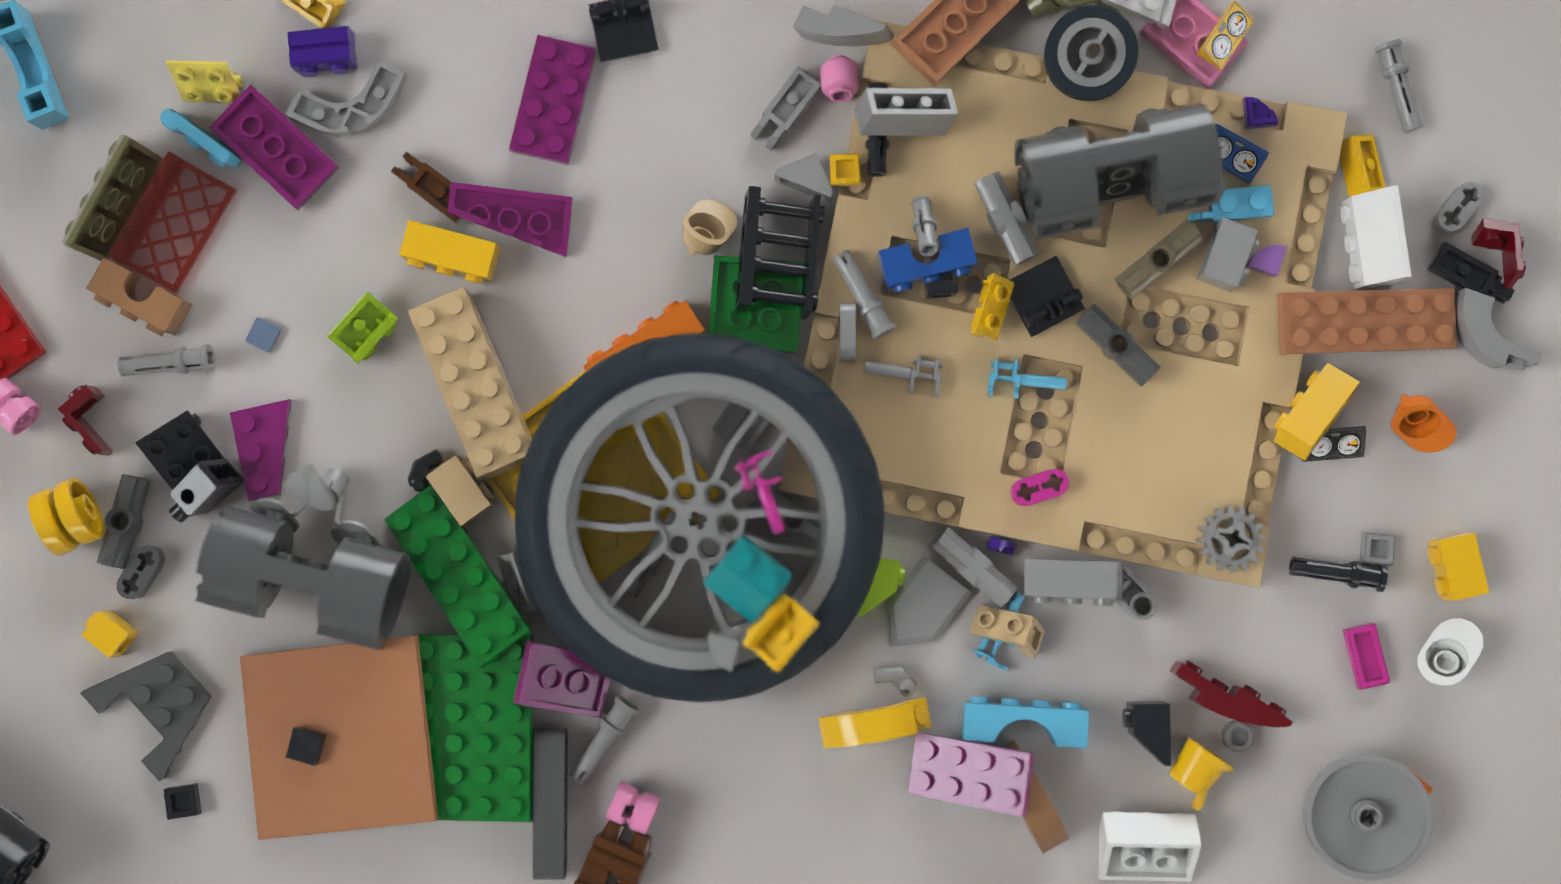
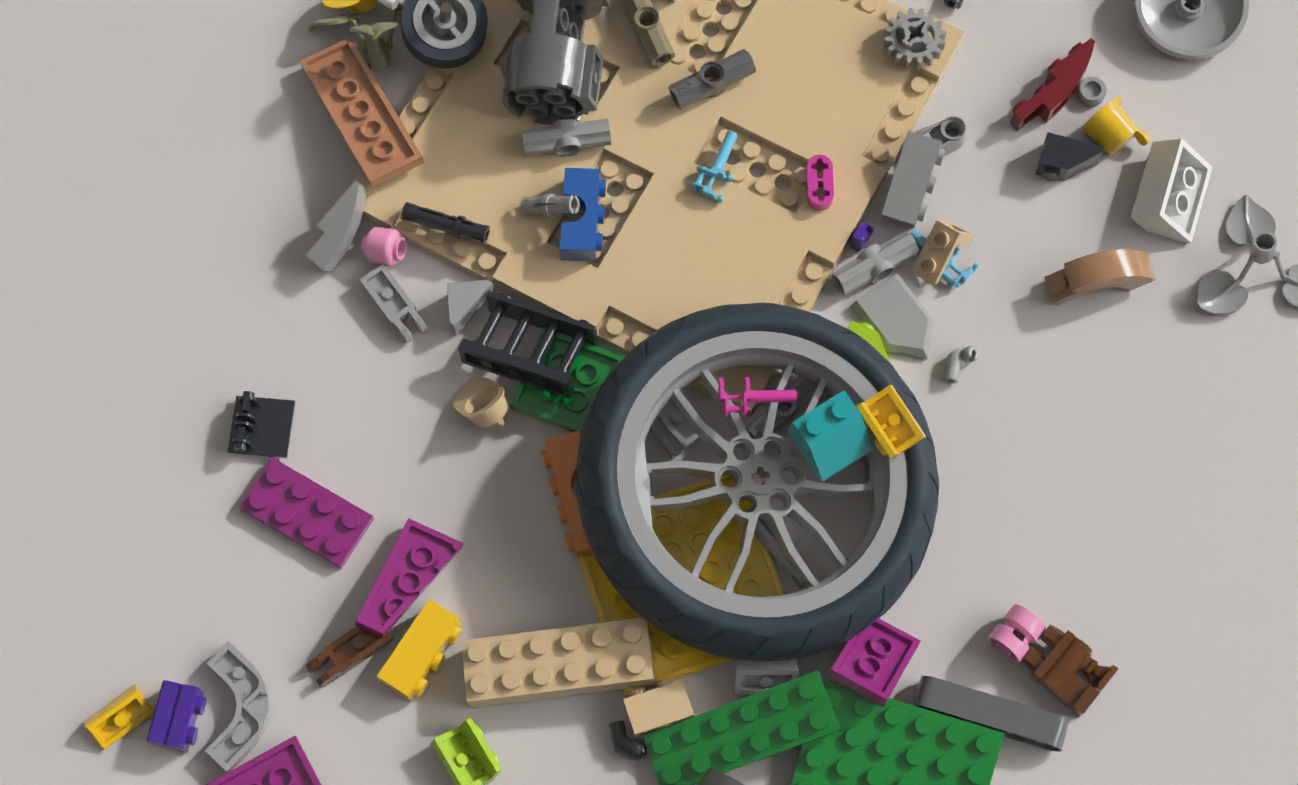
camera: 75 degrees left, 15 degrees down
(611, 727) = (932, 633): light grey pin -> none
(723, 649) = (890, 482): light grey tile -> none
(845, 169) = (471, 263): yellow tile -> none
(847, 332) = (624, 302): light grey beam -> none
(870, 308) = (607, 276): light grey pin -> none
(875, 724) = (996, 391): yellow arch -> none
(905, 111) = (440, 187): light grey brick -> none
(907, 372) = (680, 261): light grey piece -> none
(941, 289) = (612, 210): black tile -> none
(971, 774) = (1065, 315): plate -> none
(985, 720) = (1021, 292): medium azure arch -> none
(995, 300) = (631, 166): yellow hinge -> none
(1045, 296) = (647, 128): black hinge -> none

